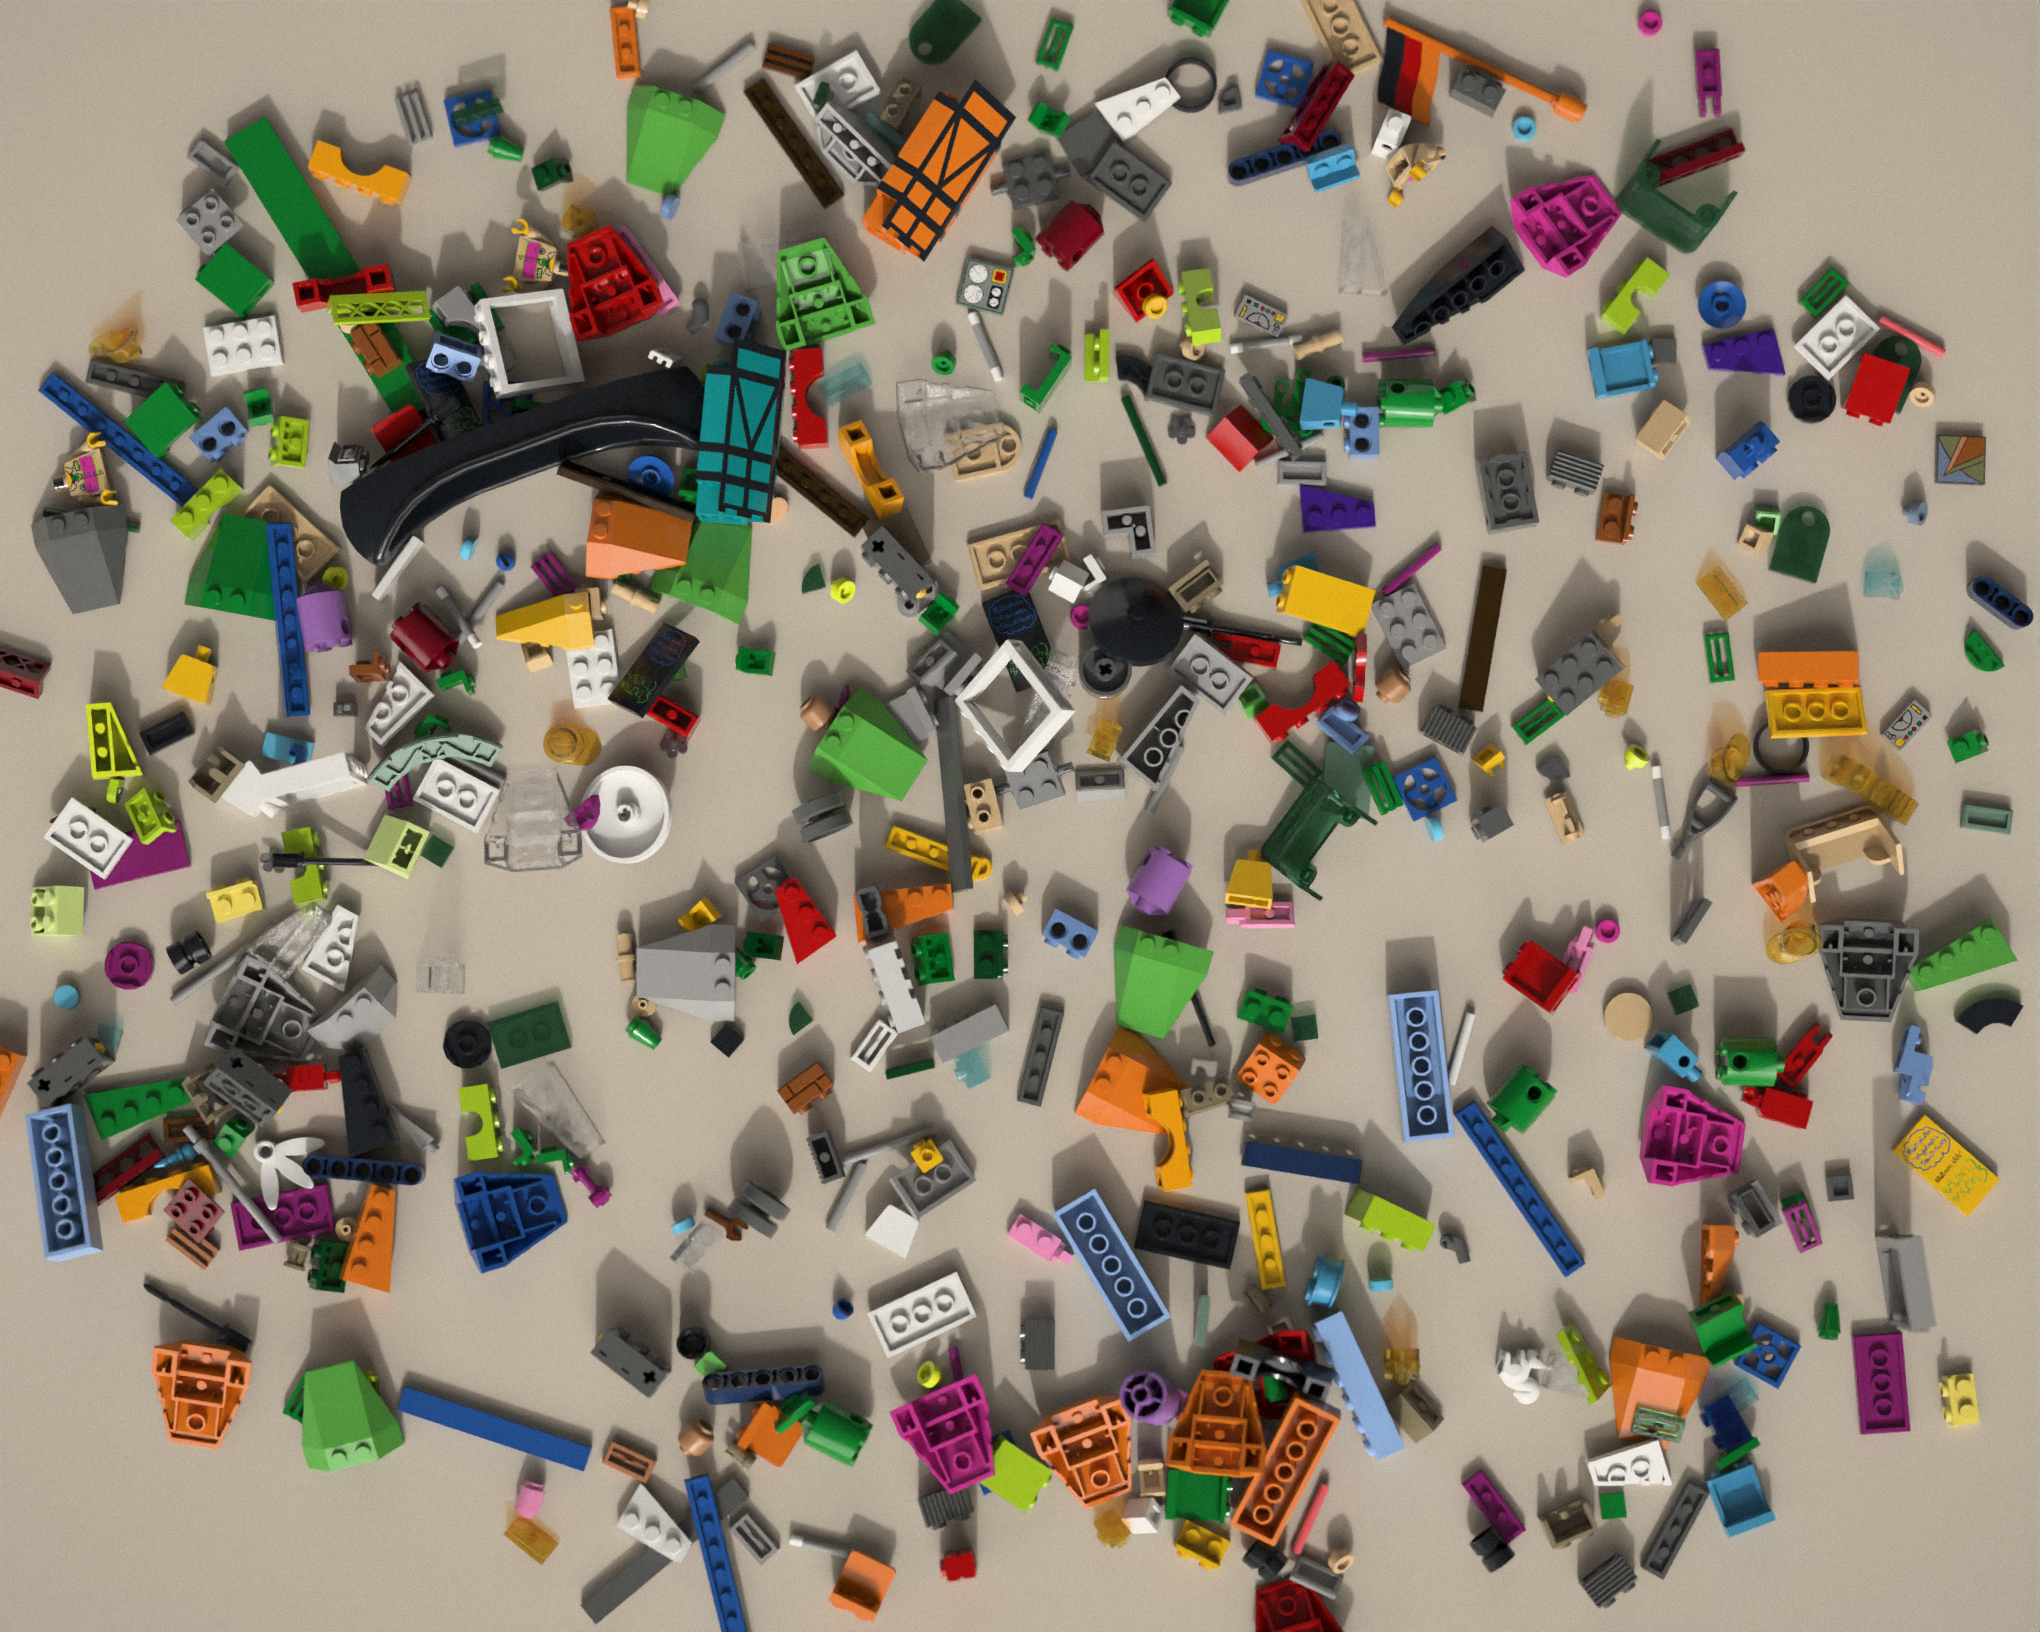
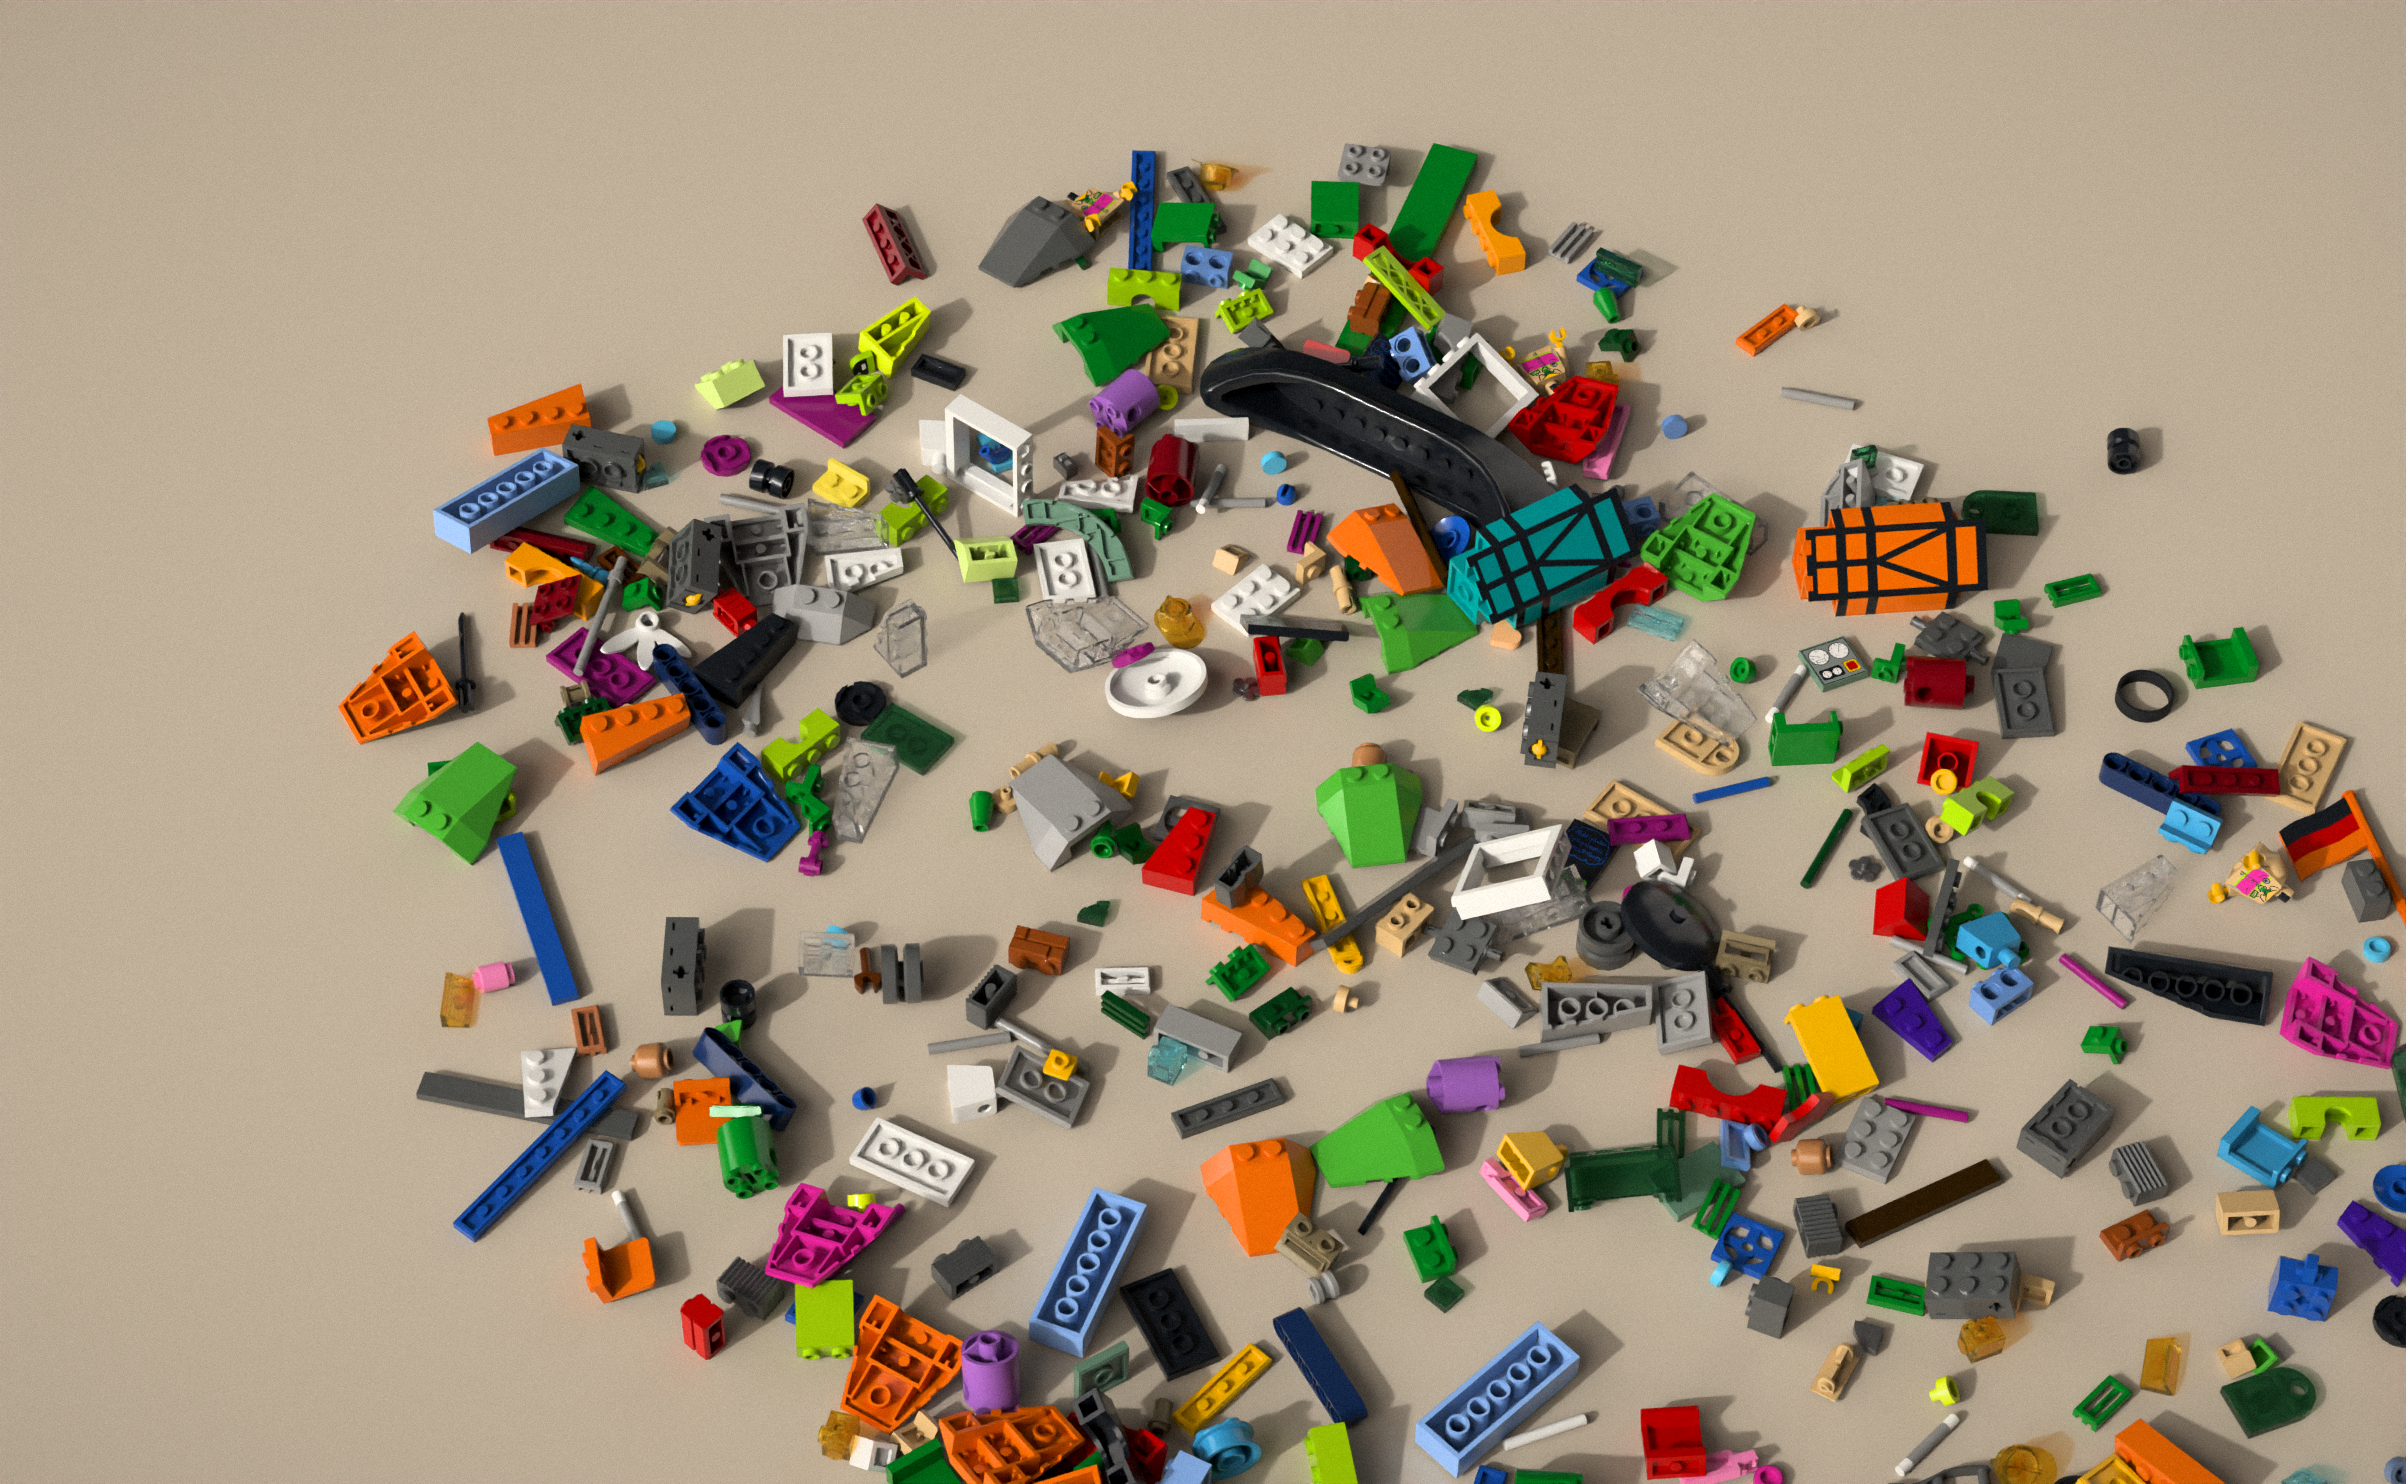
camera: 50 degrees right, 35 degrees down
(193, 677) = (999, 358): yellow torso -> none
(213, 162) = (1410, 152): light grey tile -> none
(216, 773) = (928, 410): dark tan window -> none
(287, 621) = (1076, 404): blue tile -> none
(555, 622) = (1272, 548): yellow wedge -> none
(667, 137) = (1727, 395): bright green wedge -> none
(727, 1040) = (1028, 874): black tile -> none
(787, 52) = (1869, 429): reddish brown tile -> none
(793, 144) = (1807, 475): dark brown tile -> none
(821, 814) = (1284, 811): dark grey wheel -> none
(858, 450) = (1604, 666): light orange arch -> none
(894, 980) = (1193, 942): wedge -> none
(920, 604) = (1534, 777): light grey plate -> none
(939, 613) = (1536, 795): green bracket -> none
(1039, 1240) = (1059, 1209): bright pink hinge -> none
(1072, 928) = (1359, 1055): medium blue brick -> none
(1135, 525) = (1746, 877): light grey brick -> none
(1137, 107) = (2087, 670): white wing -> none
(1173, 1169) = (1220, 1264): light orange arch -> none
(1230, 101) = (2162, 732): dark grey tile -> none
(1253, 700) = (1693, 1059): bright green slope -> none
(1261, 316) = (2016, 863): light grey tile -> none
(1271, 1068) = (1382, 1284): orange bracket -> none
(1391, 134) = (2272, 836): white torso -> none
(1408, 403) = (2060, 1002): green cylinder -> none

